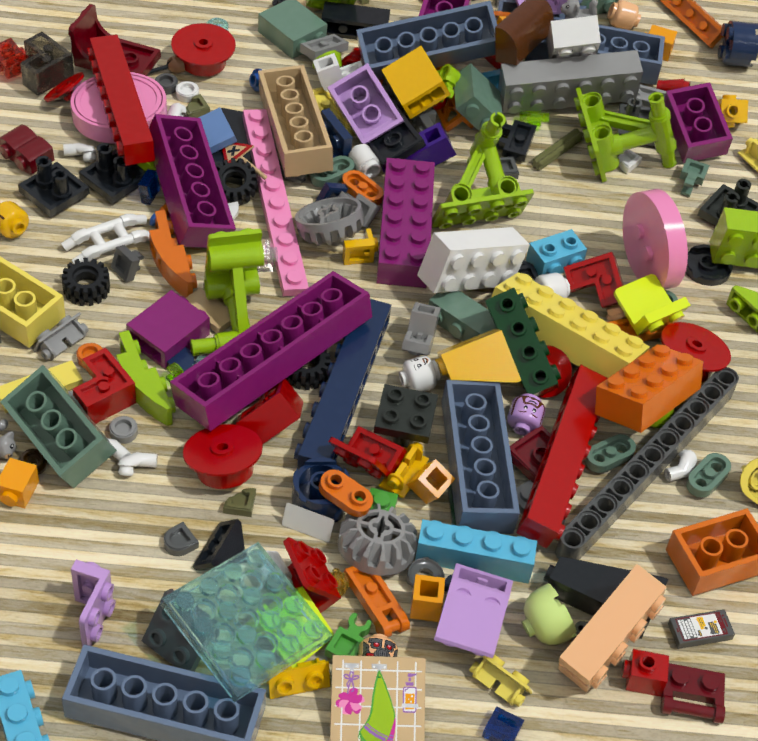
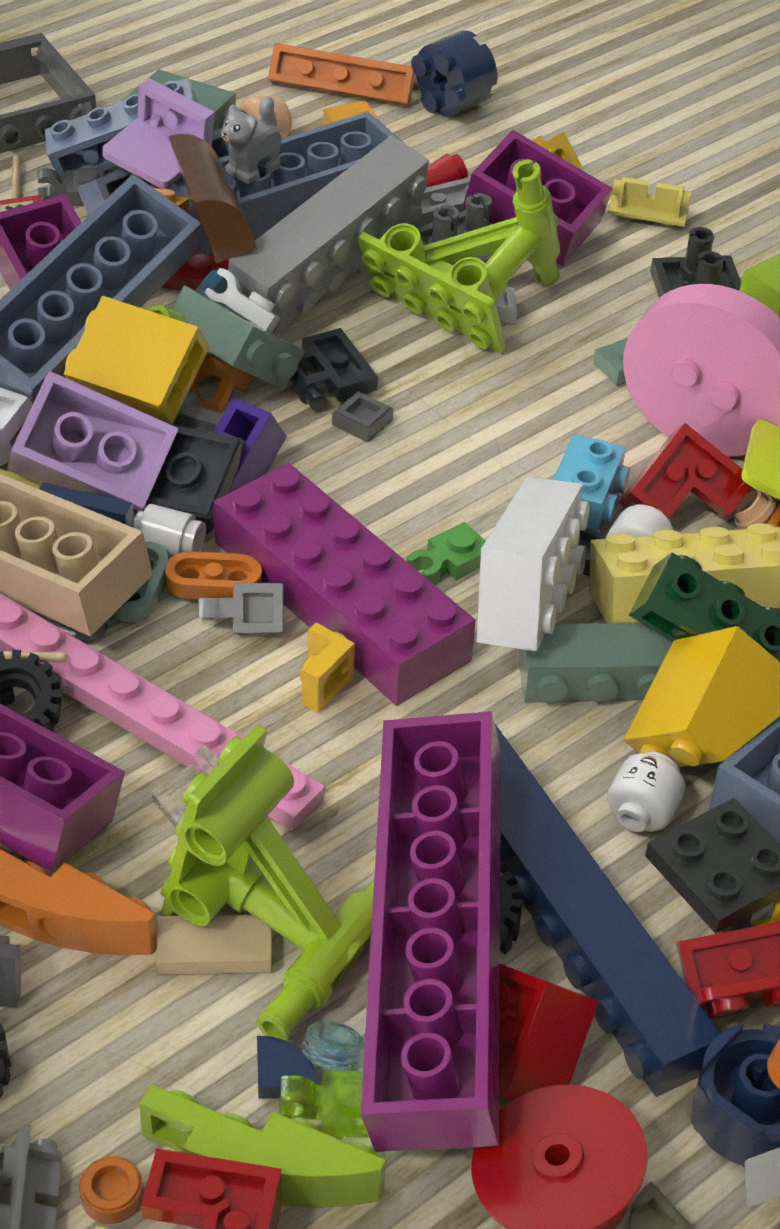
camera: 40 degrees left, 5 degrees down
(168, 327) = (197, 1026): magenta brick -> none
(330, 220) = (237, 642): light grey gear -> none
(331, 190) = (175, 609): dark blue tile -> none
(421, 329) = (564, 724): light grey brick -> none
(488, 203) = (429, 446): lime plate -> none
(494, 91) = (254, 308): none -> white plate
(534, 117) = (320, 319): clear neon green plate -> none
(557, 149) = (398, 345): olive axle -> none
(573, 37) = (294, 169): white brick -> none
(693, 173) = (600, 268): sand green plate -> none

